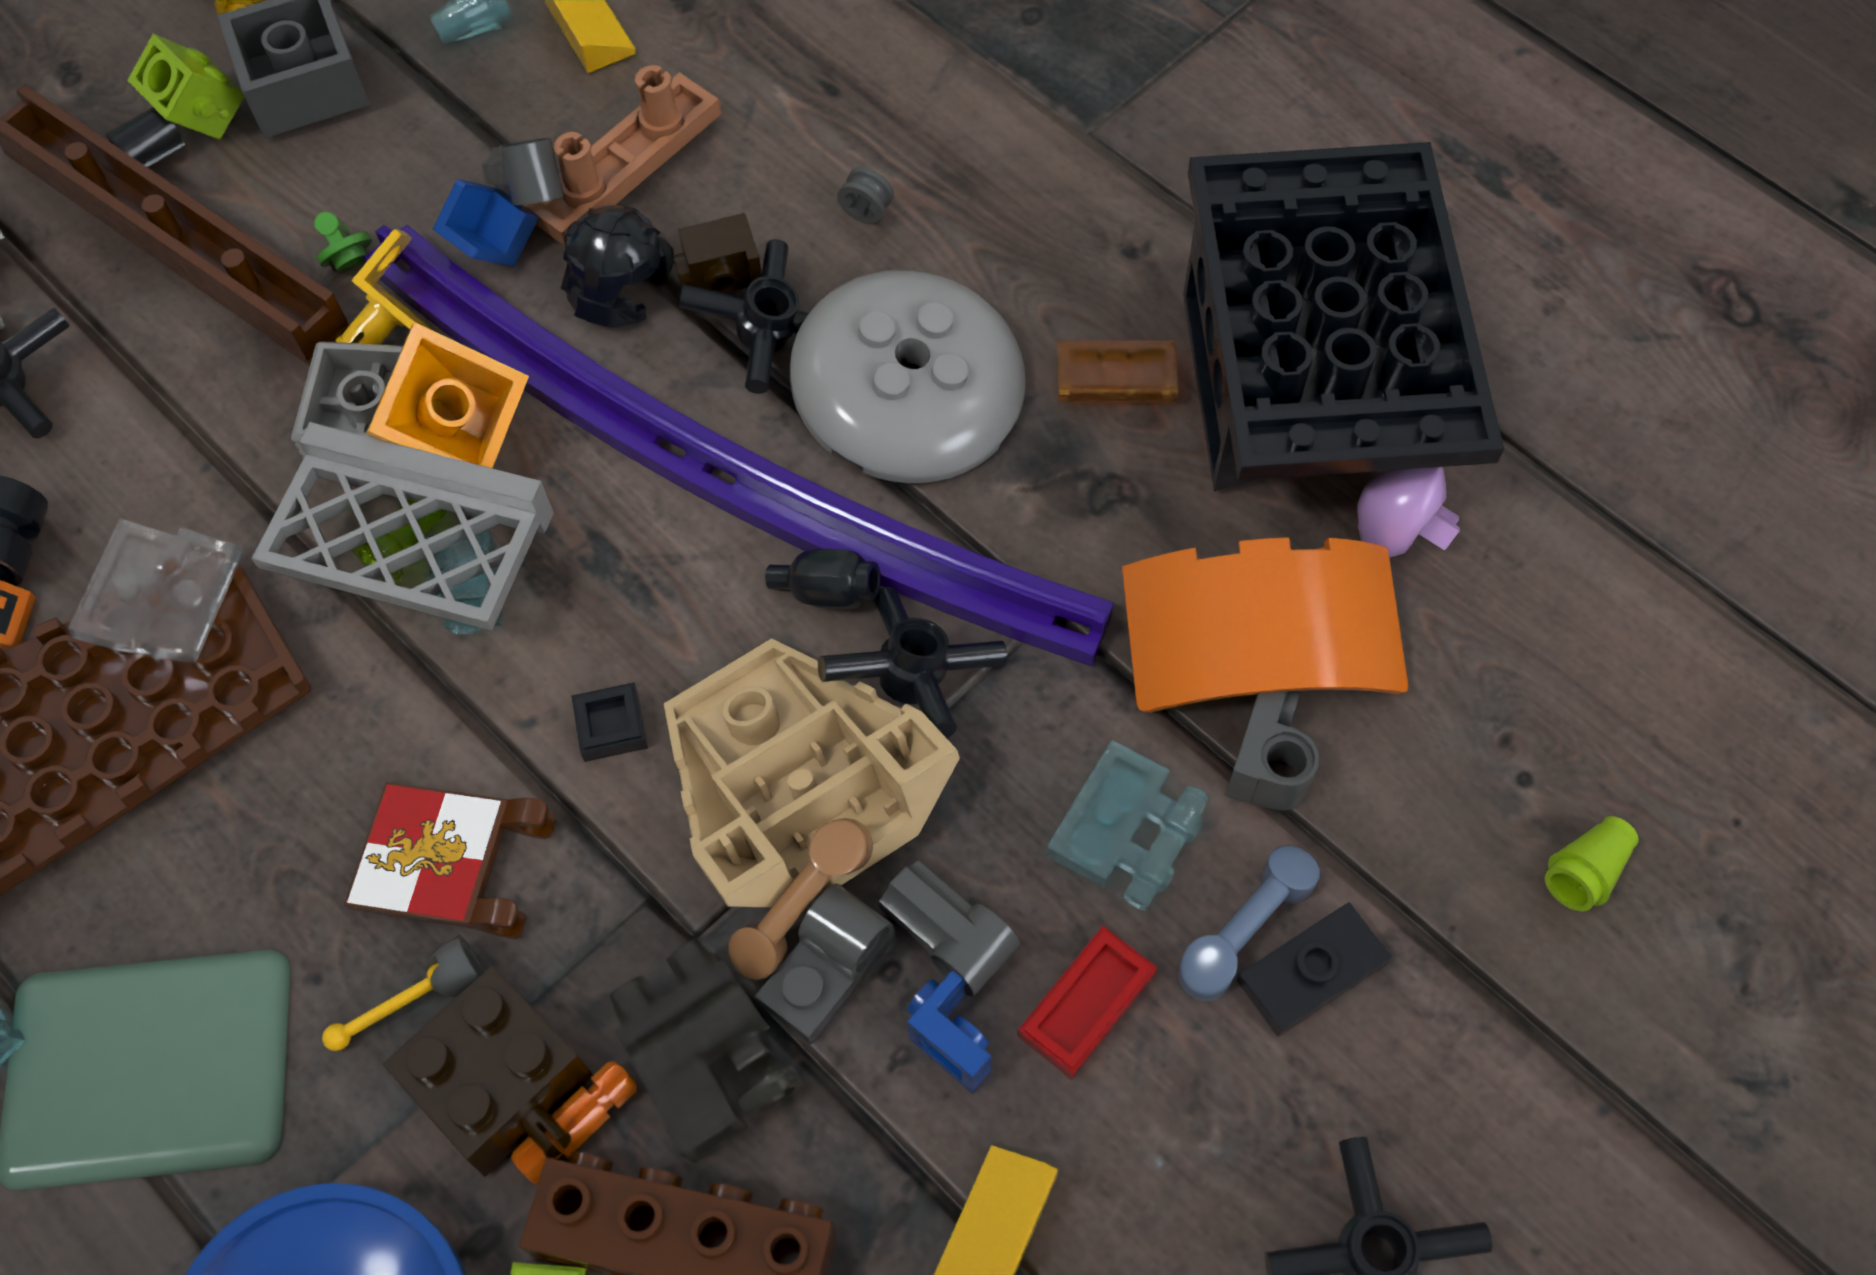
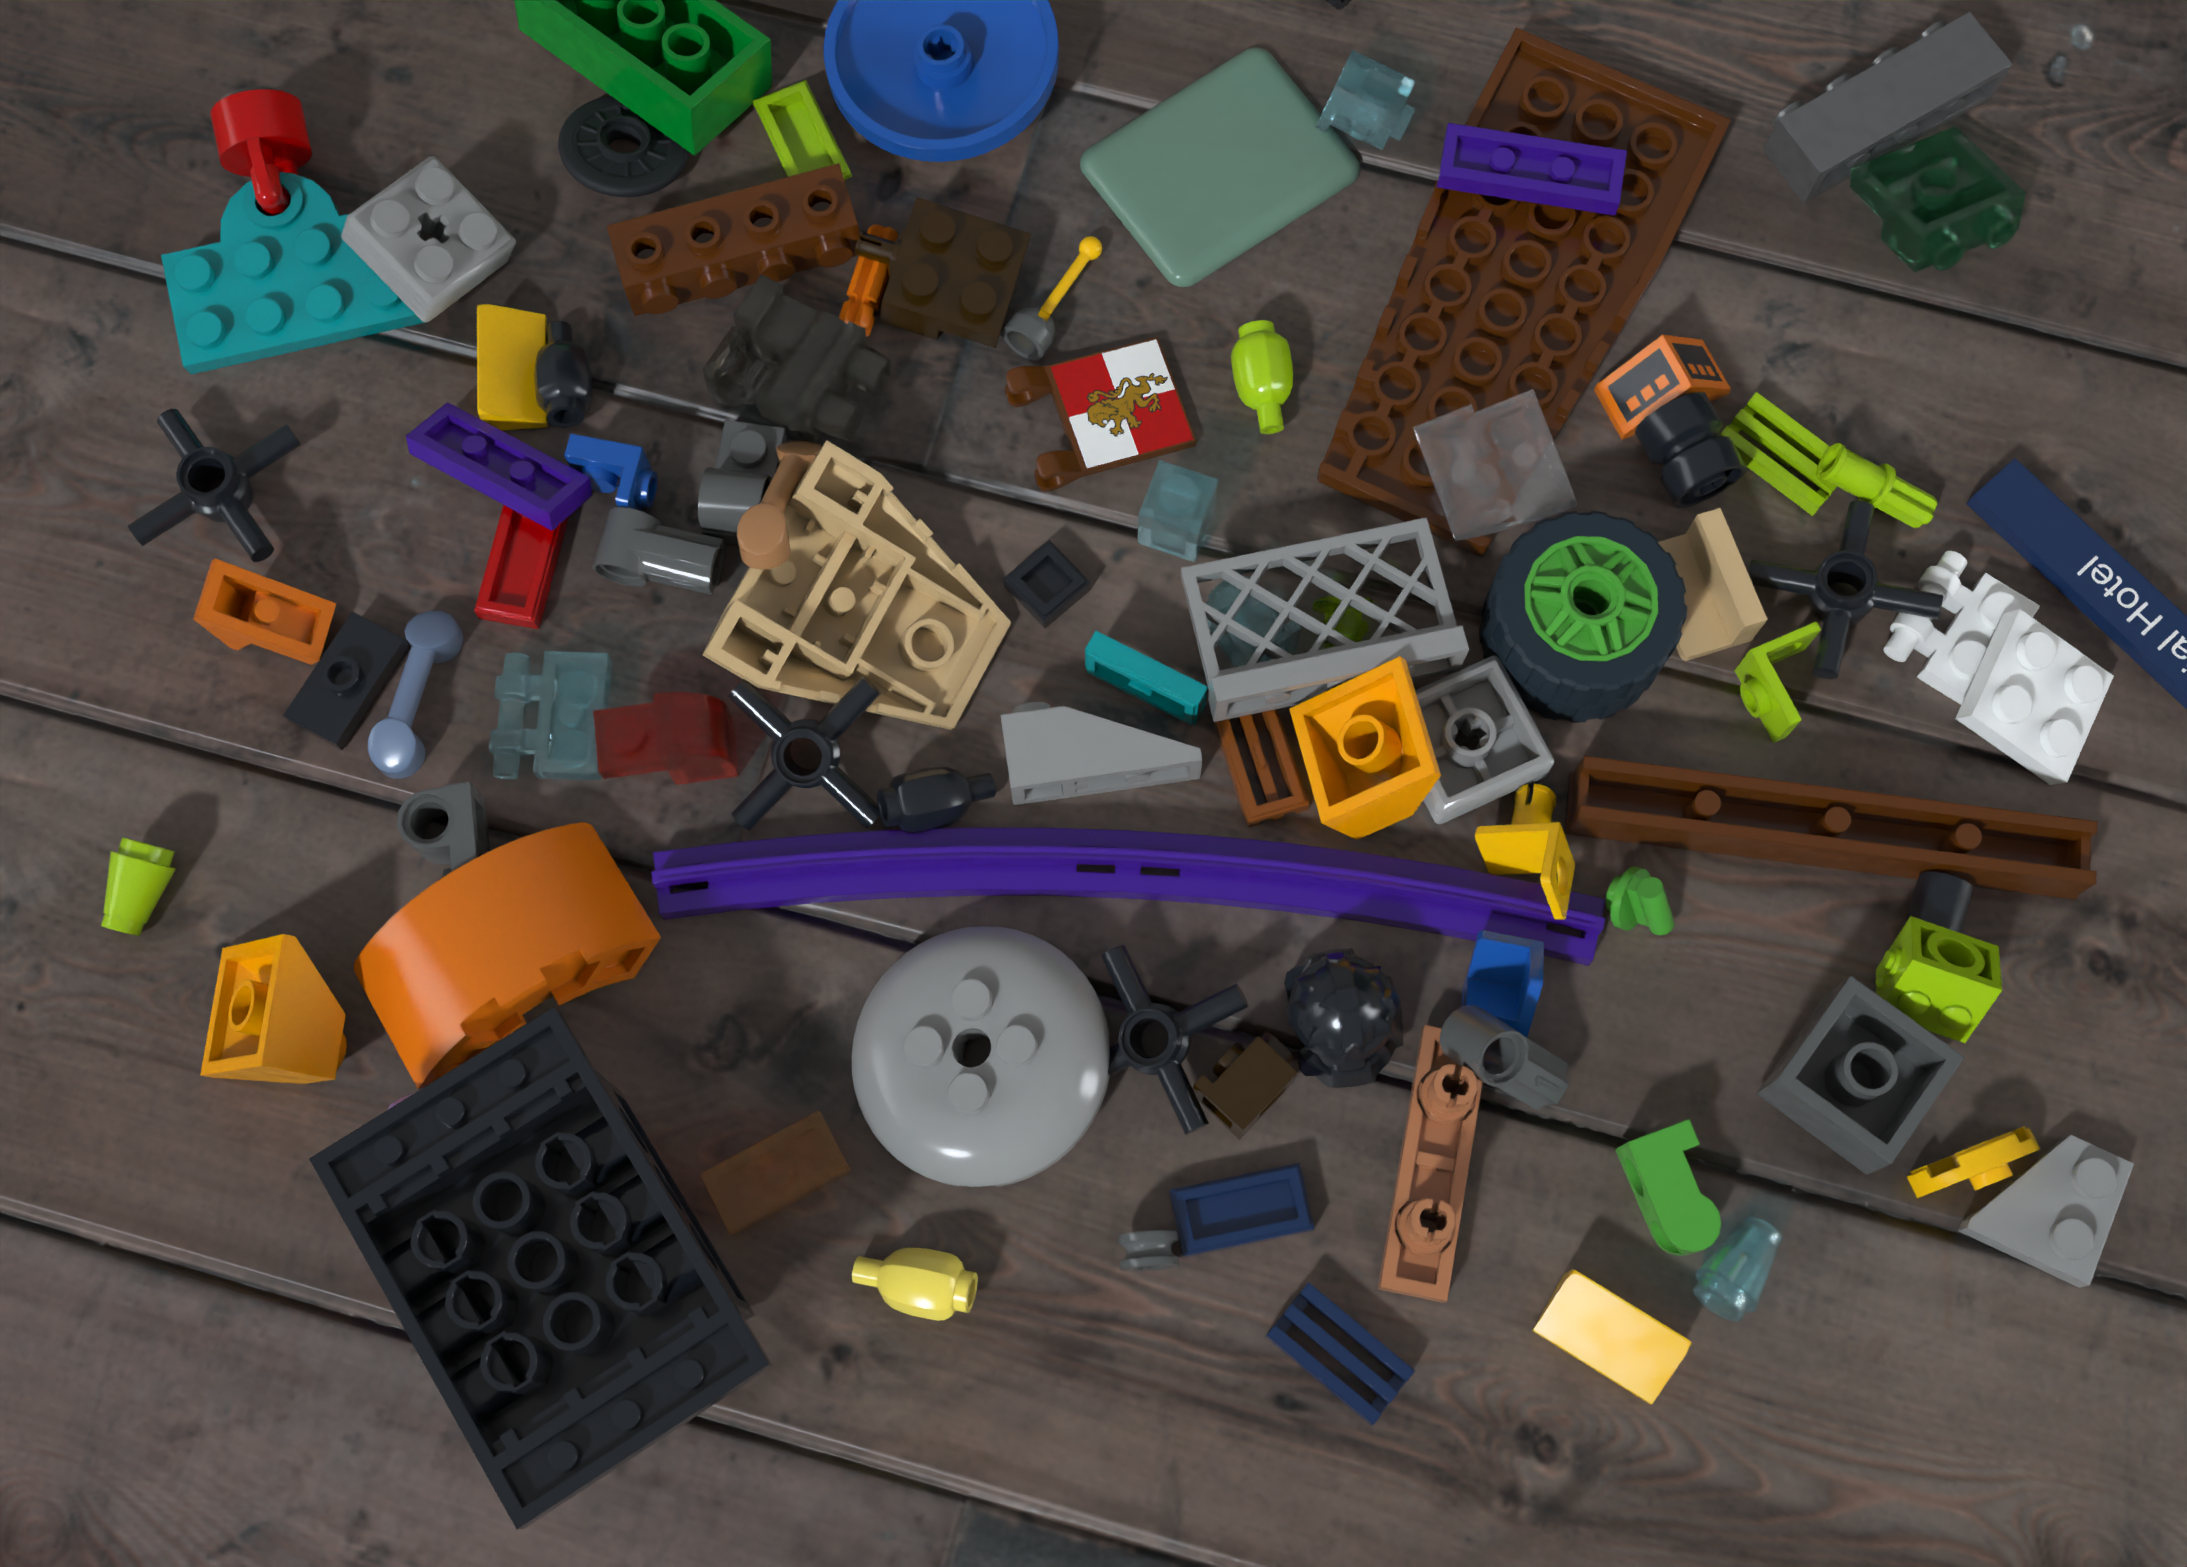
camera: 150 degrees right, 10 degrees up
(83, 434) = (1719, 591): none -> tan panel
(111, 342) = (1761, 686): none -> lime bracket
(197, 435) = (1583, 615): none -> wheel
(278, 804) = (1263, 372): none -> lime plant
(451, 706) = (1177, 510): none -> clear light blue brick
(477, 76) = (1667, 1192): none -> bright green leg
(563, 484) = (1273, 807): none -> dark orange tile
(584, 582) = (1145, 678): none -> teal tile
(690, 553) = (1078, 754): none -> light grey slope
(763, 61) = (1385, 1390): none -> dark blue tile
(781, 199) = (1241, 1210): none -> dark blue tile
(948, 1184) = (562, 378): none -> black plant
(1025, 721) = (675, 733): none -> clear red brick
(1046, 254) = (920, 1282): none -> light yellow plant
(1063, 1102) = (499, 466): none -> dark purple plate
(1373, 1057) = (263, 612): none -> orange slope
(1504, 670) = (273, 1016): none -> light orange slope

